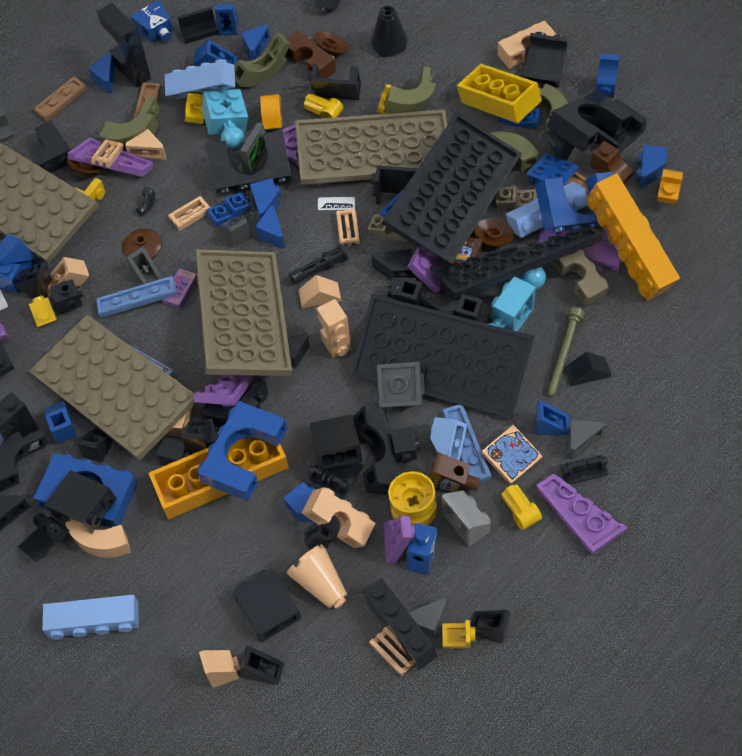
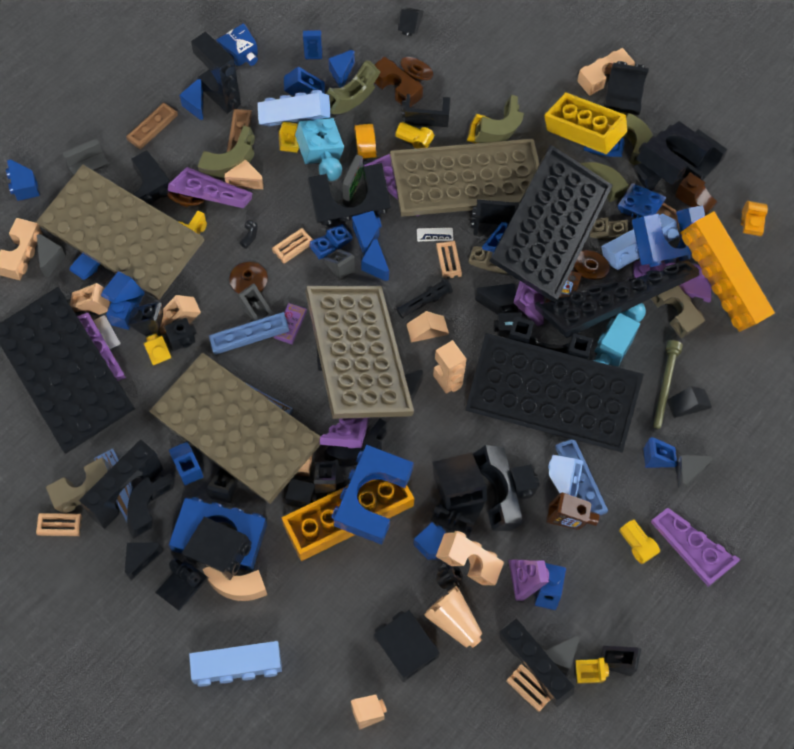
camera: 10 degrees left, 5 degrees up
(110, 155) = (205, 192): light nougat tile -> none
(198, 25) = (283, 49): black panel -> none
(260, 666) = (407, 708): black slope -> none
(388, 33) = (473, 61): black cone -> none
(400, 384) = (517, 422): dark grey panel -> none
(413, 496) = (542, 528): yellow wheel -> none
(465, 517) = (588, 553): light grey slope -> none
(511, 454) = (625, 489): tile -> none
(584, 469) = (695, 501): black hinge -> none
(607, 74) = (686, 104): blue arch -> none
(652, 164) = (734, 194): blue slope -> none

